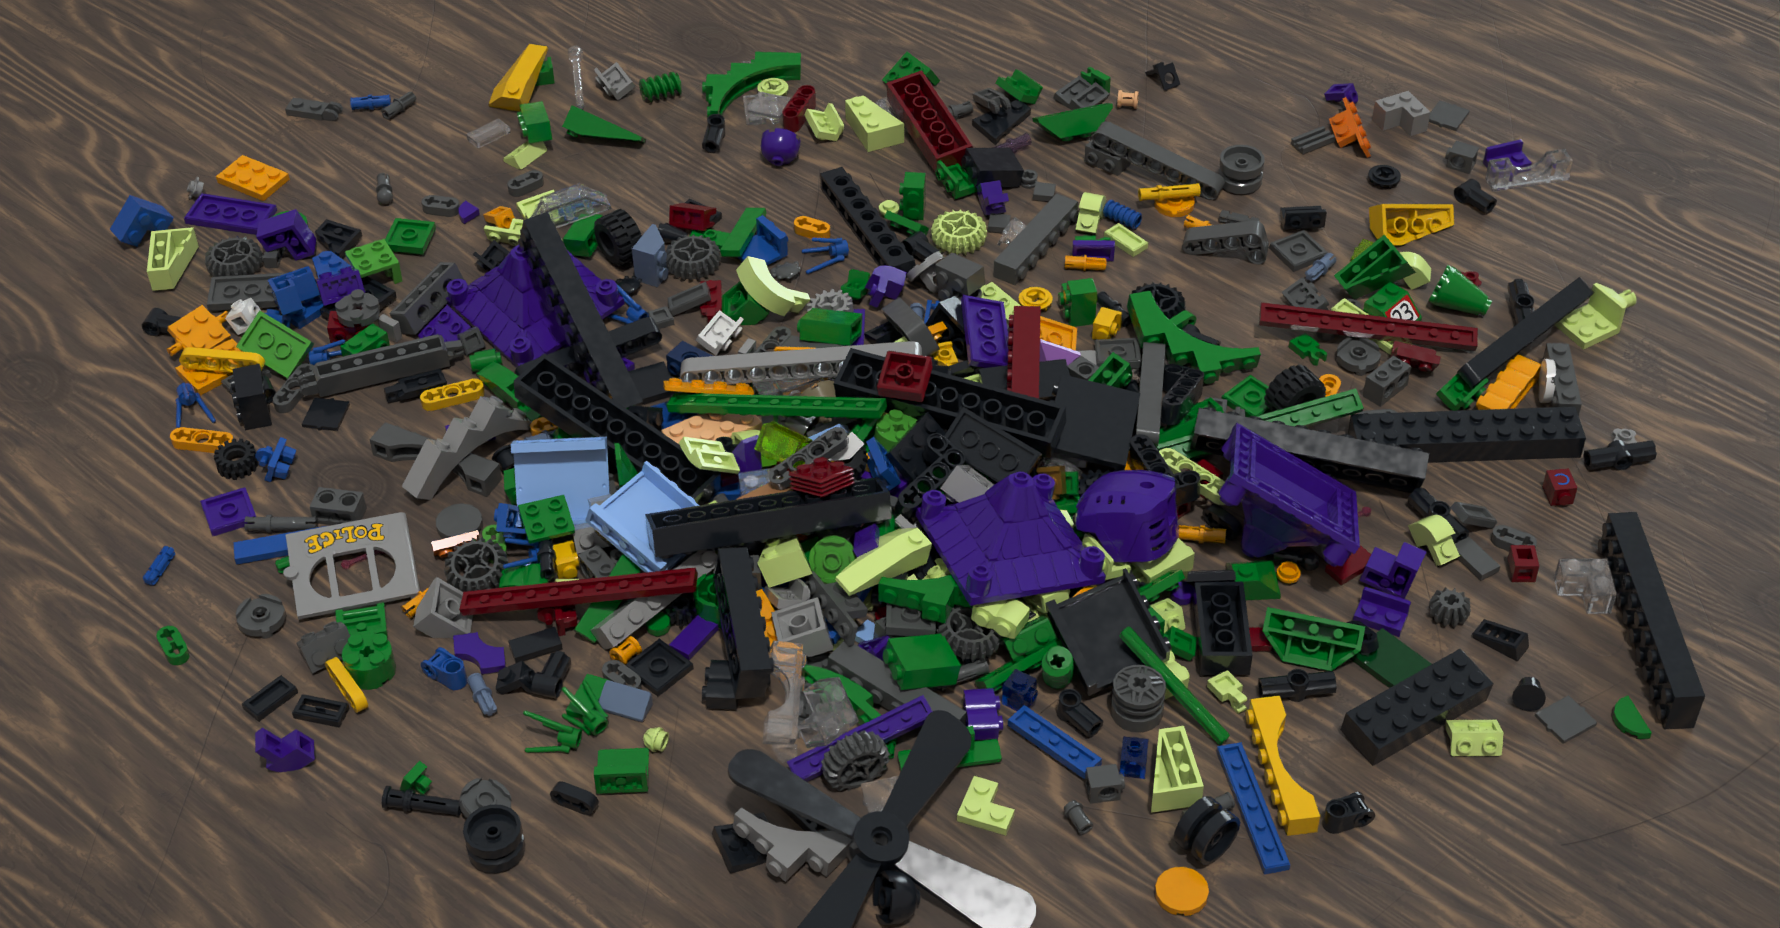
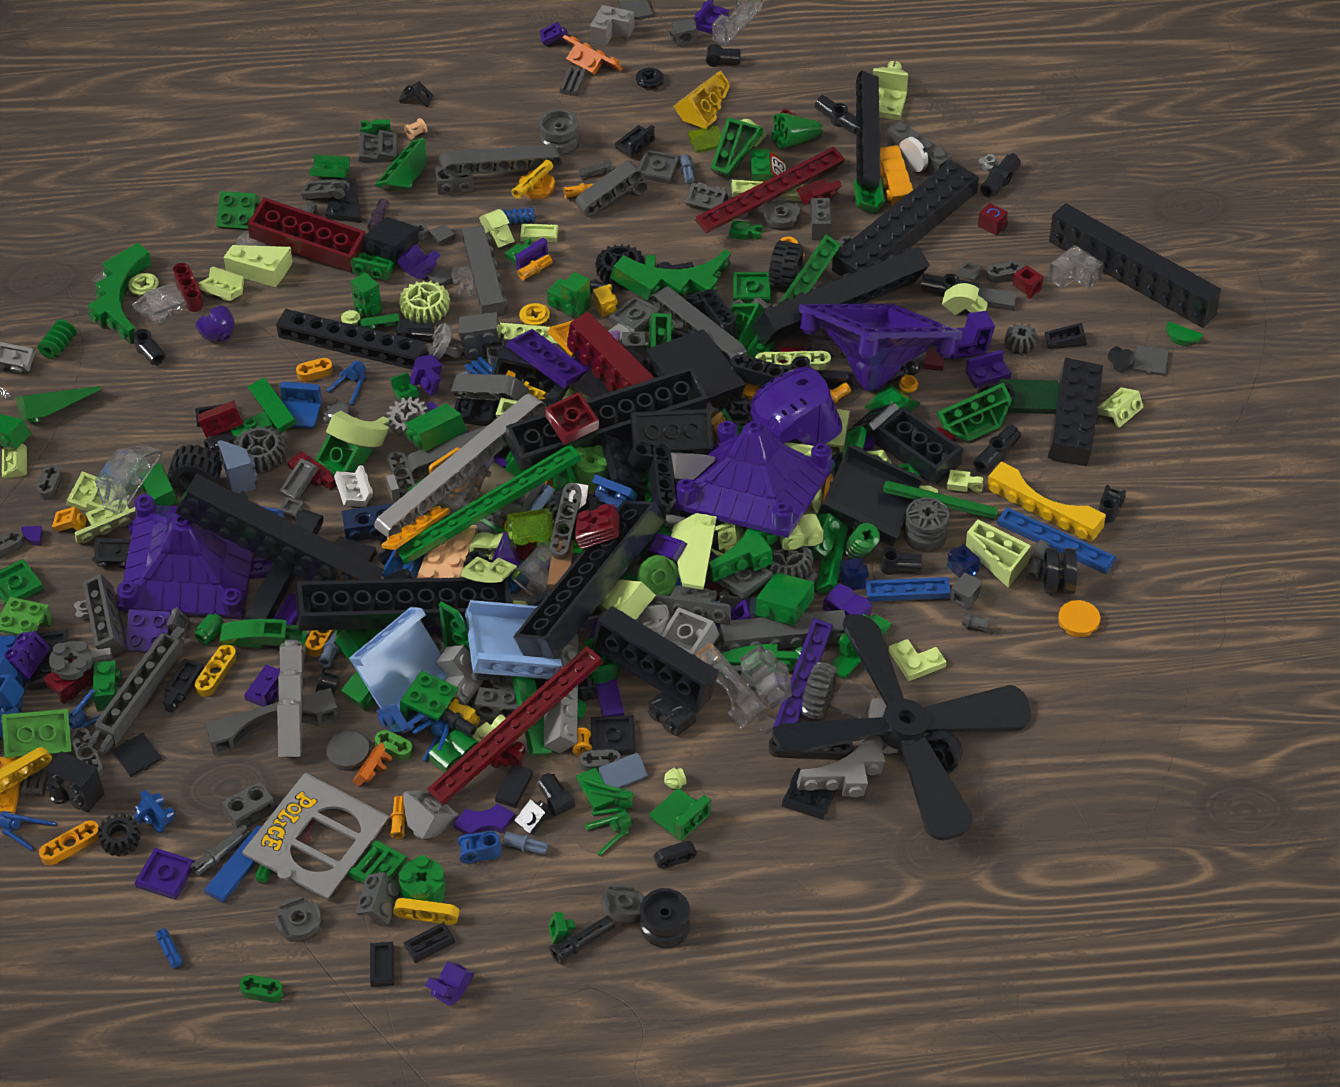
camera: 45 degrees left, 5 degrees up
(474, 560) = (395, 774): dark grey gear -> none

